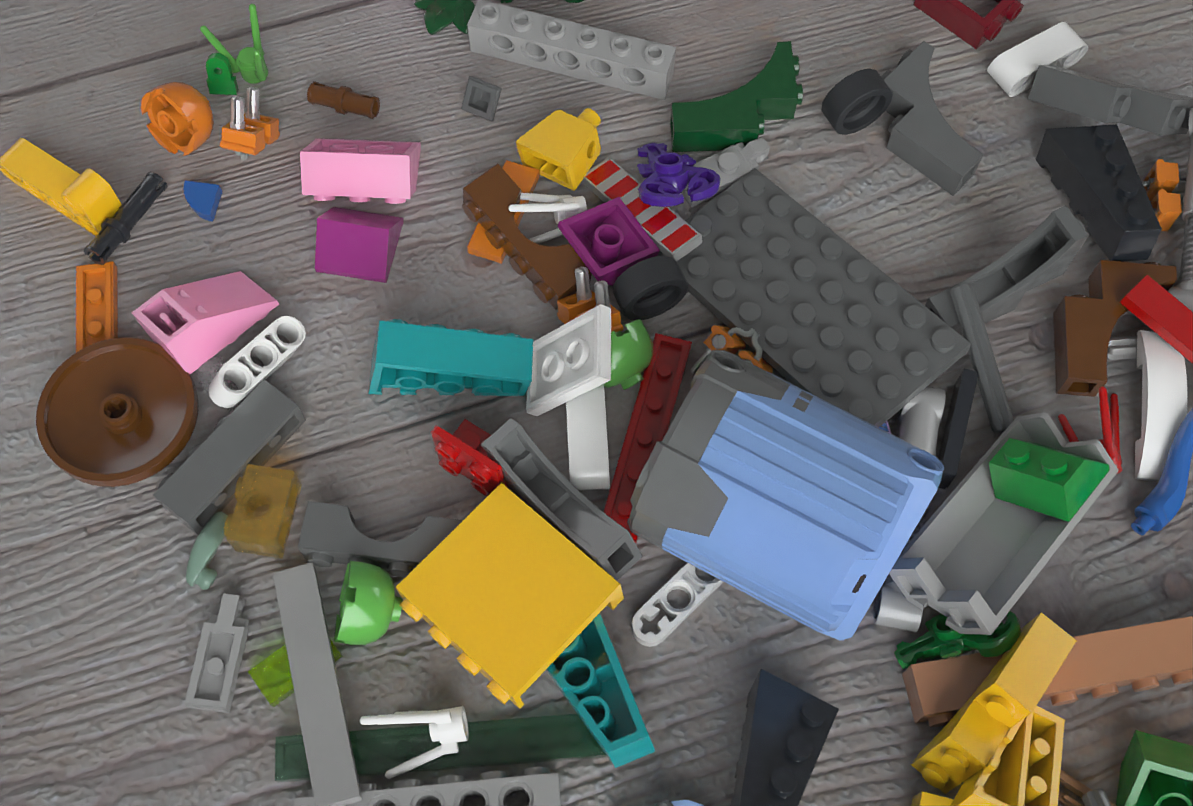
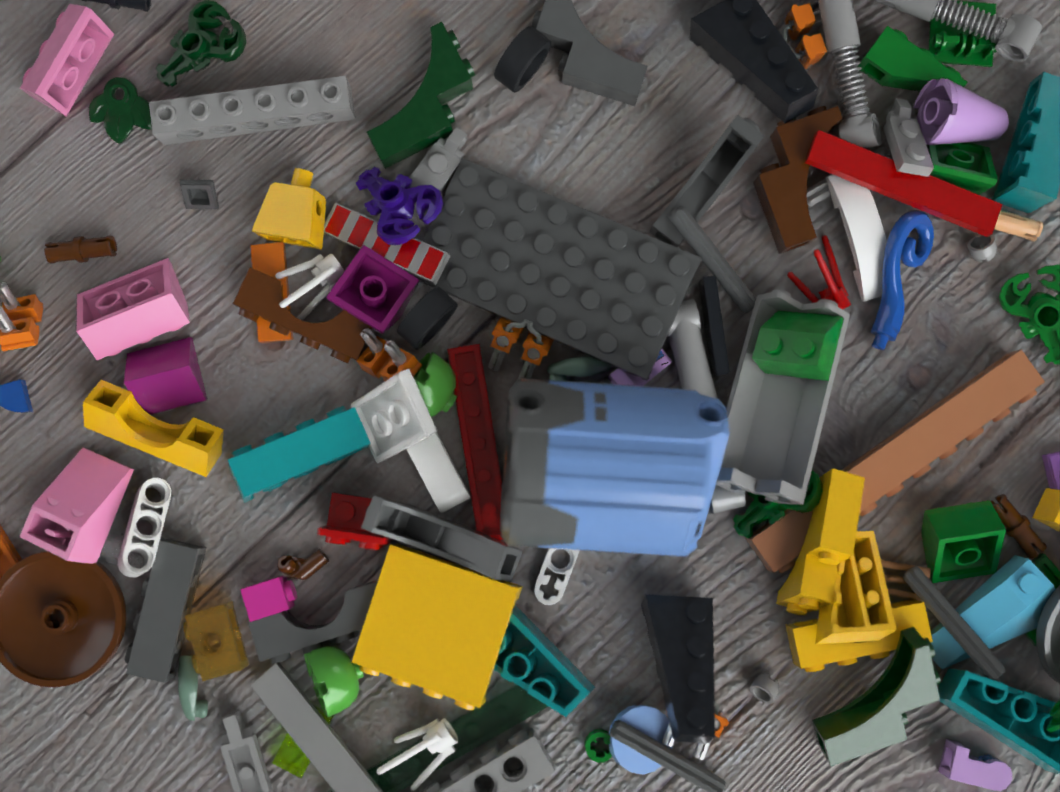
camera: 30 degrees left, 20 degrees up
(292, 251) = (119, 416): none -> yellow arch
(344, 487) = (269, 597): none -> dark pink brick
(392, 481) = (302, 568): none -> reddish brown arm

